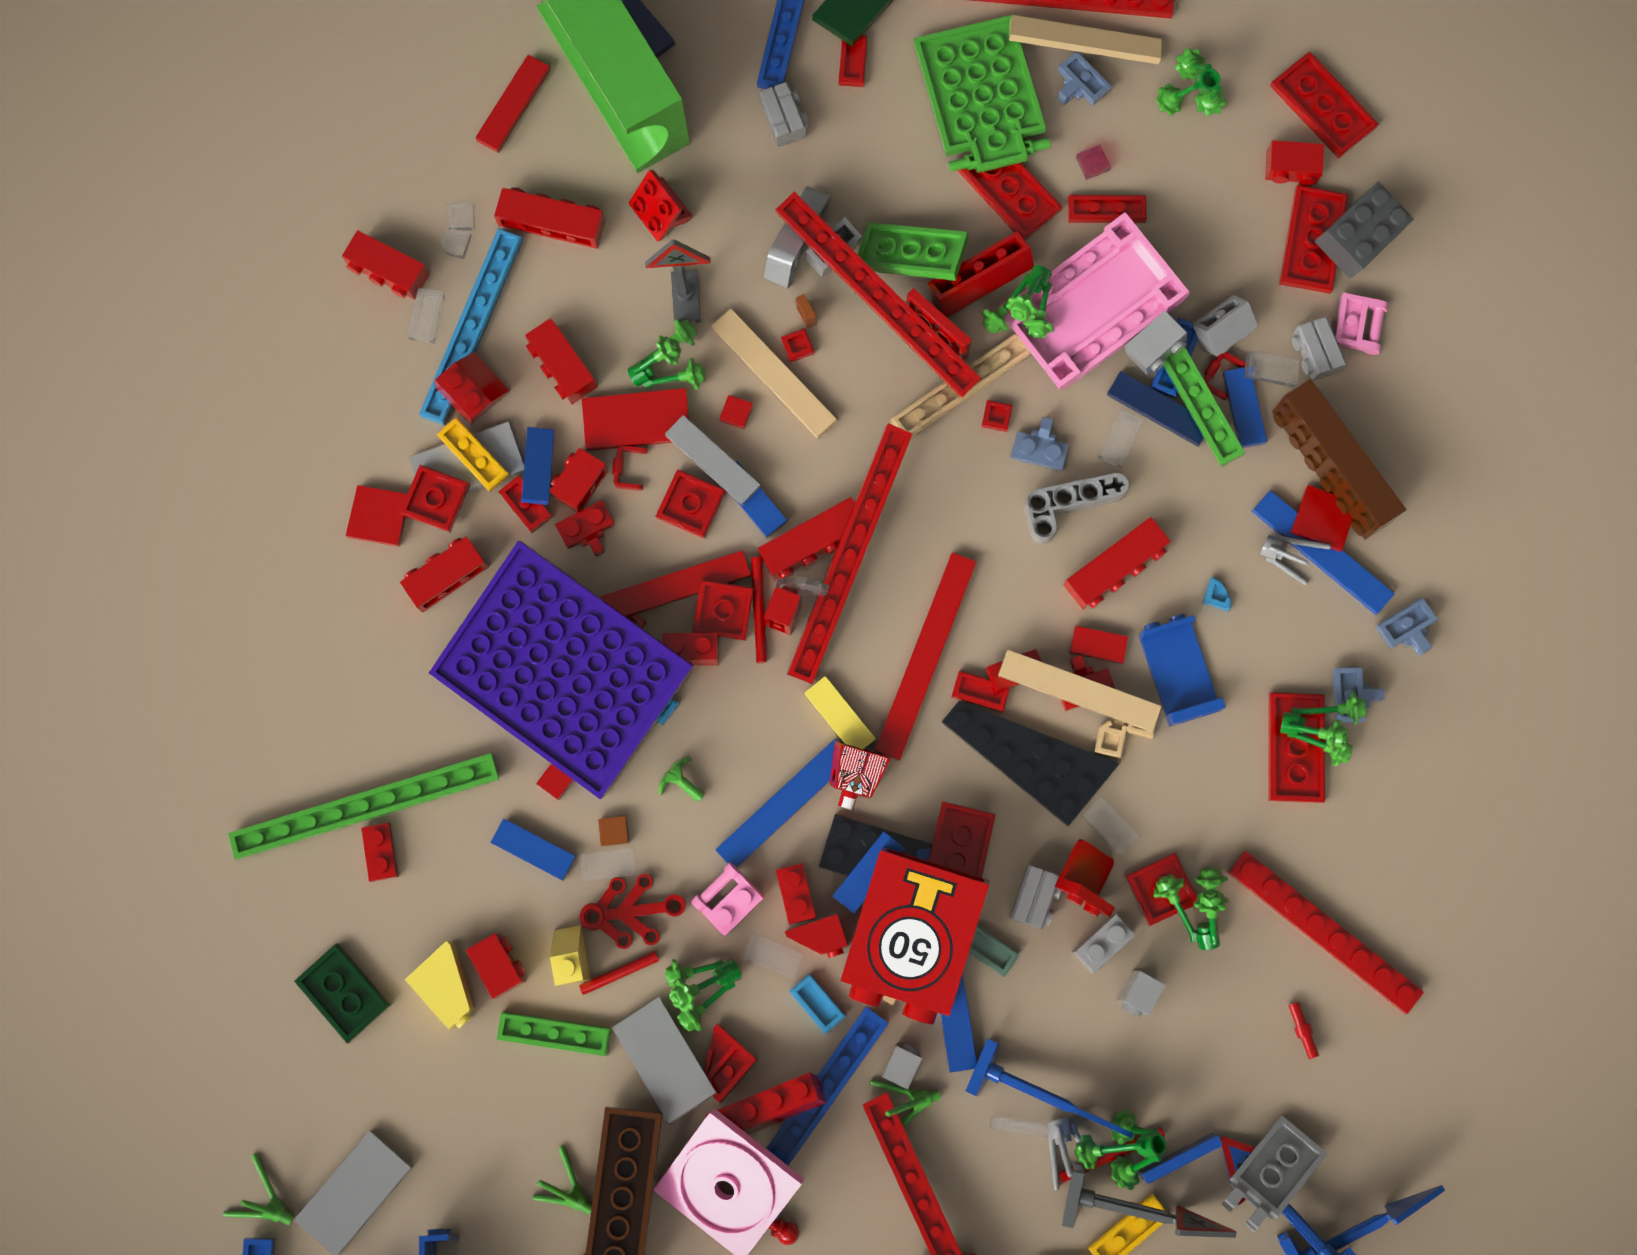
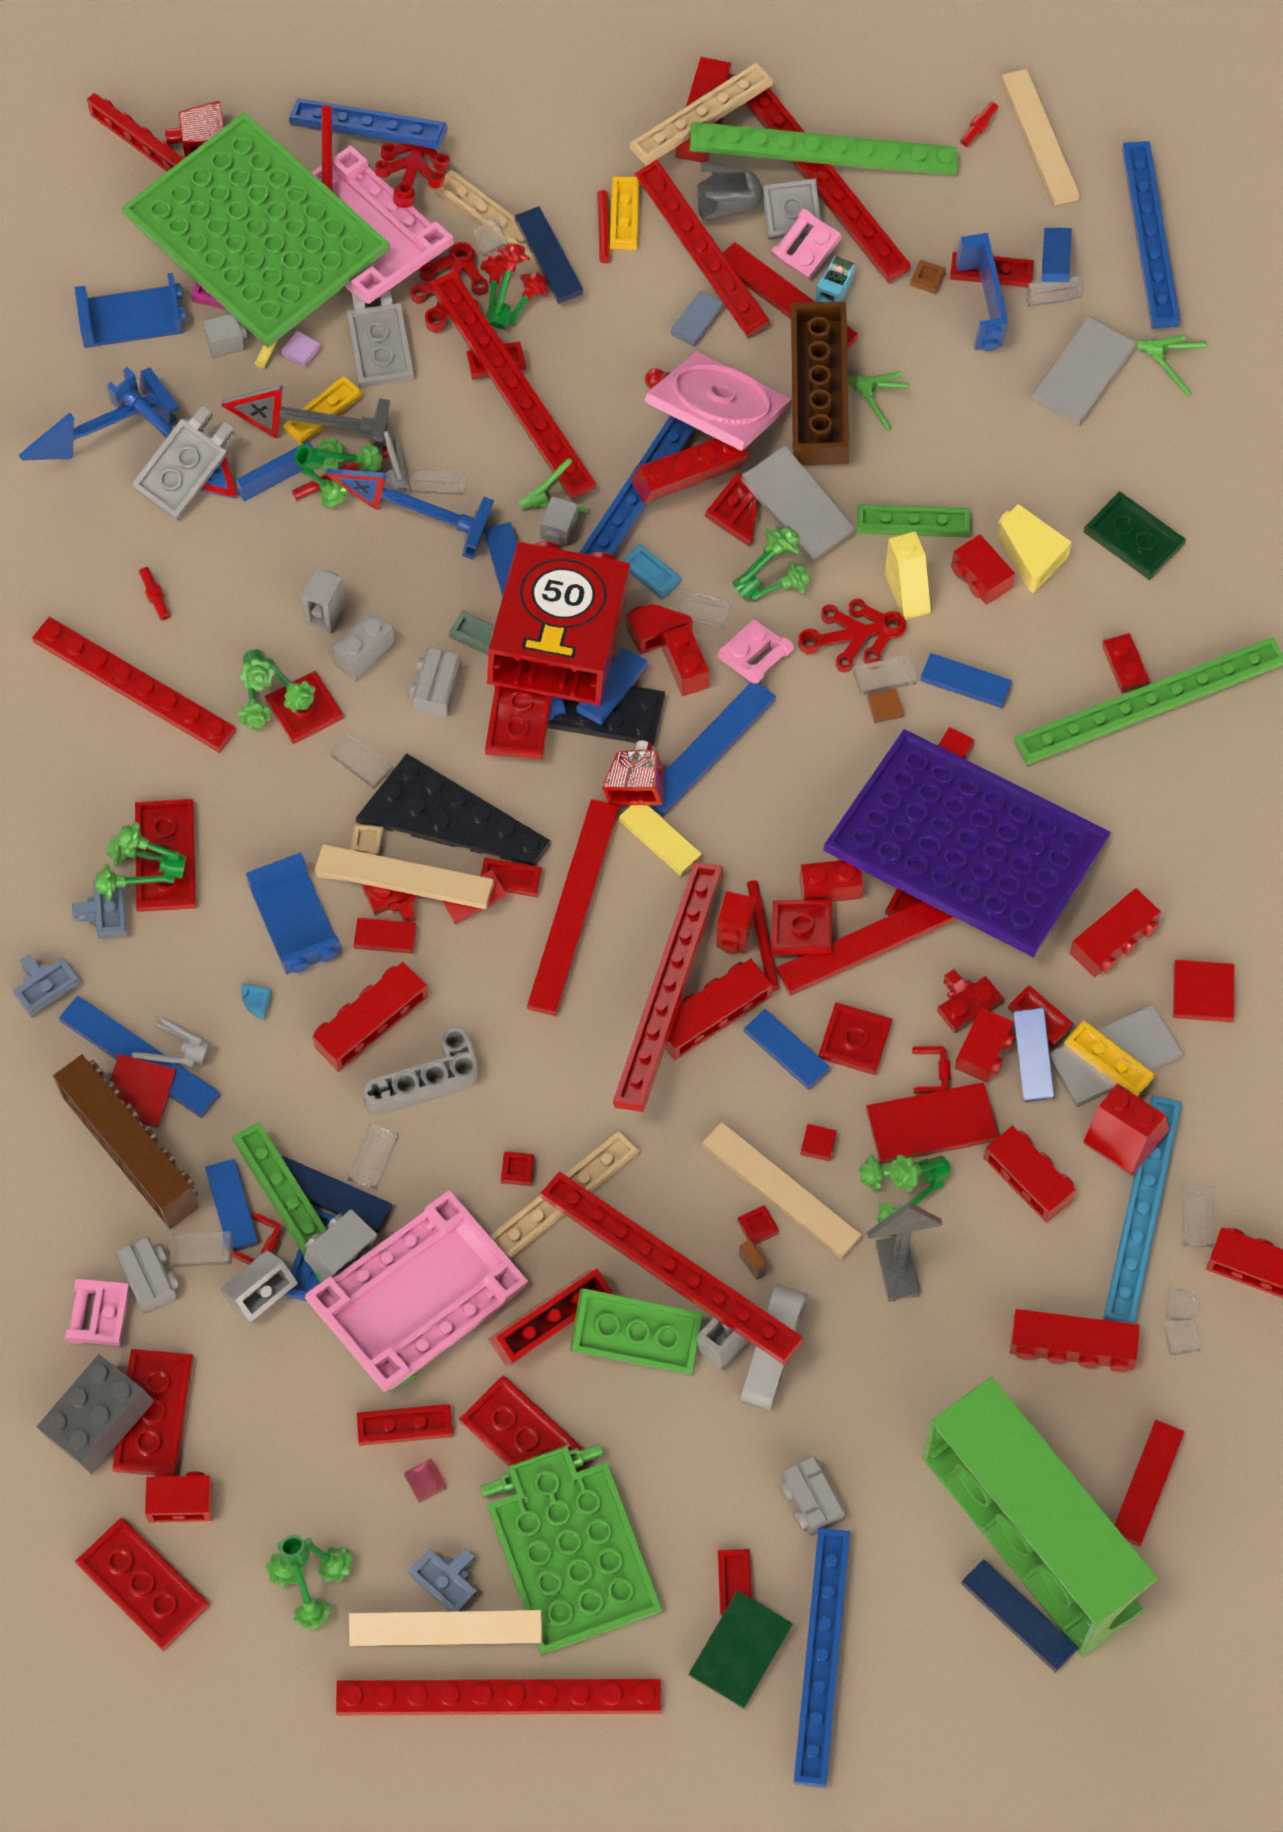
camera: 170 degrees right, 15 degrees down
(435, 498) = (1142, 1008): red tile -> none
(619, 973) = (852, 581): red bar -> none
(658, 206) = (943, 1366): red bracket -> none
(676, 776) = (825, 753): bright green plant -> none
(712, 460) = (837, 1079): light grey tile -> none
(805, 586) = (717, 947): clear tile -> none
(940, 324) = (596, 1247): red tile -> none
(1022, 306) = (492, 1254): bright green plant -> none
(1040, 447) = (465, 1137): sand blue hinge -> none
(1085, 877) = (390, 695): red bracket -> none

